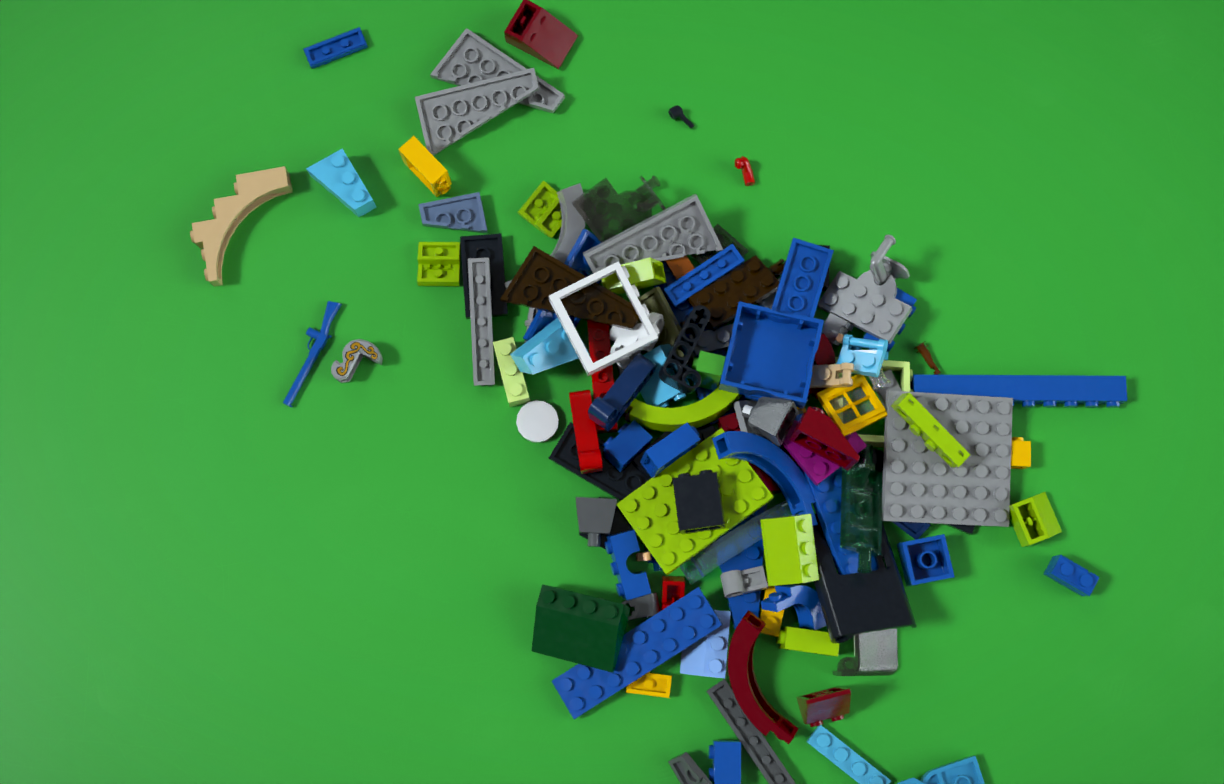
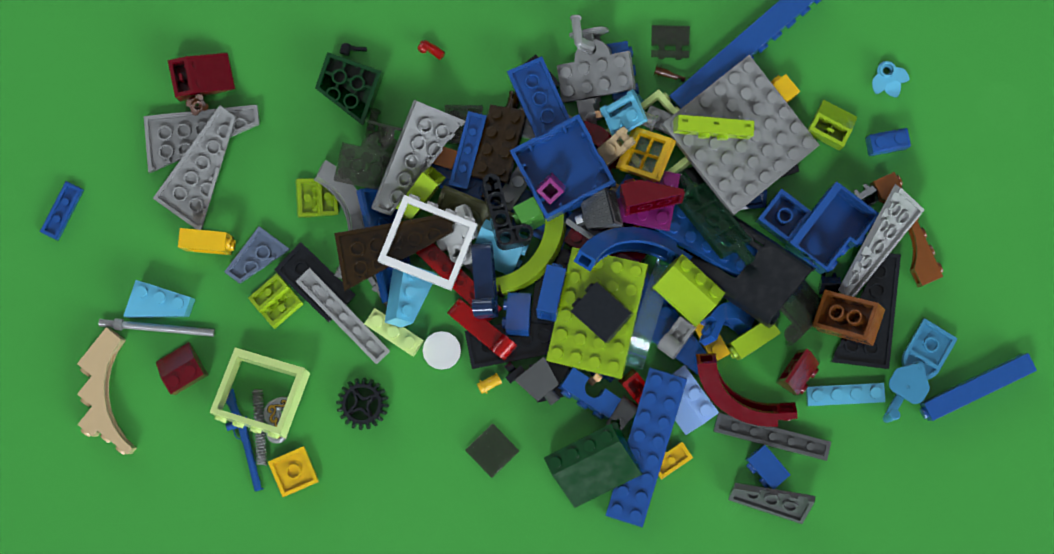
camera: 35 degrees left, 5 degrees up
(299, 175) = (120, 324): none -> light grey bar
(313, 252) = (181, 369): none -> dark red slope
(328, 414) = (293, 471): none -> yellow plate
(329, 357) = (258, 416): none -> light grey piece
(372, 356) = (301, 377): none -> yellowish green window
(434, 399) = (348, 412): none -> black gear
(505, 541) = (492, 450): none -> clear smoke tile
(521, 49) = (196, 99): none -> reddish brown plate
(552, 483) = (489, 383): none -> yellow pin
(580, 491) = (514, 373): none -> black tile
(653, 142) = (349, 85): none -> dark green wedge
(746, 362) = (550, 188): none -> magenta brick
(909, 696) = (848, 317): none -> dark orange brick
(915, 654) = (829, 283): none -> black tile
(922, 721) = (883, 290): none -> black wing
(956, 328) = (670, 36): none -> clear smoke plate
(960, 607) = (832, 228): none -> blue piece
(1012, 607) = (868, 196): none -> black tile
(1014, 648) = (888, 229): none -> light grey wing
(1036, 621) = (923, 265): none -> dark orange arch
(1117, 527) = (889, 82): none -> medium azure plate

